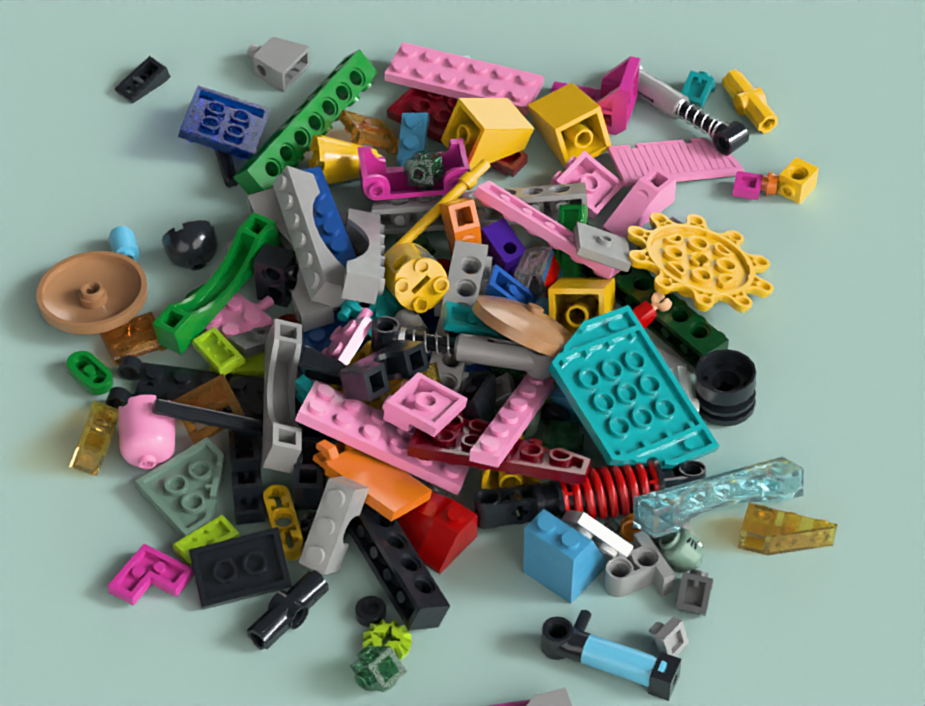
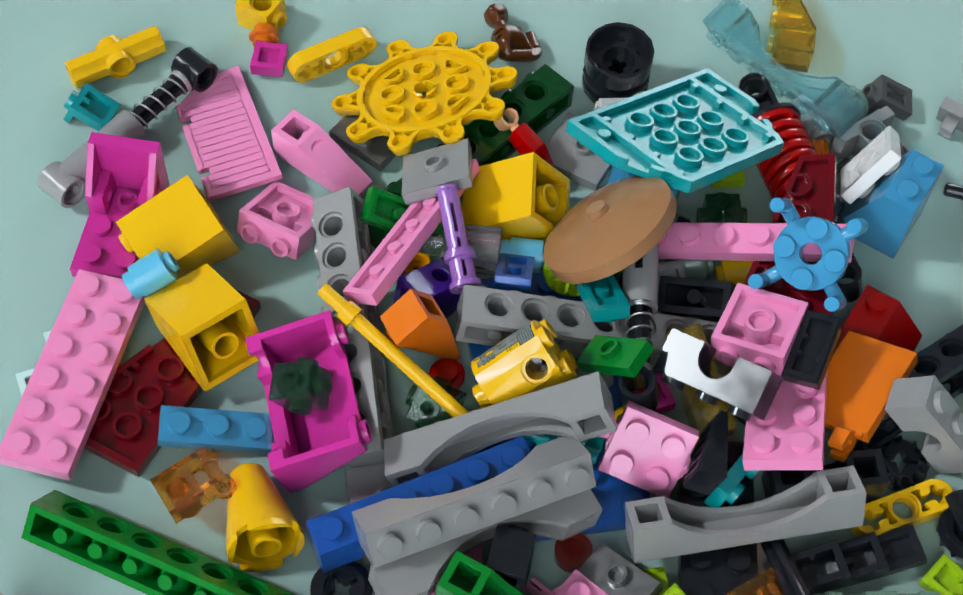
camera: 100 degrees left, 10 degrees up
(397, 431) = (812, 349): none -> black plate
(411, 317) = (615, 355): none -> green plate
(474, 428) = (789, 253): none -> dark azure plate
(518, 249) = (459, 254): none -> medium lavender pin
(524, 97) = (151, 273): none -> medium azure brick
(751, 221) = (314, 62): none -> yellow beam
(768, 330) = (512, 41): none -> reddish brown piece

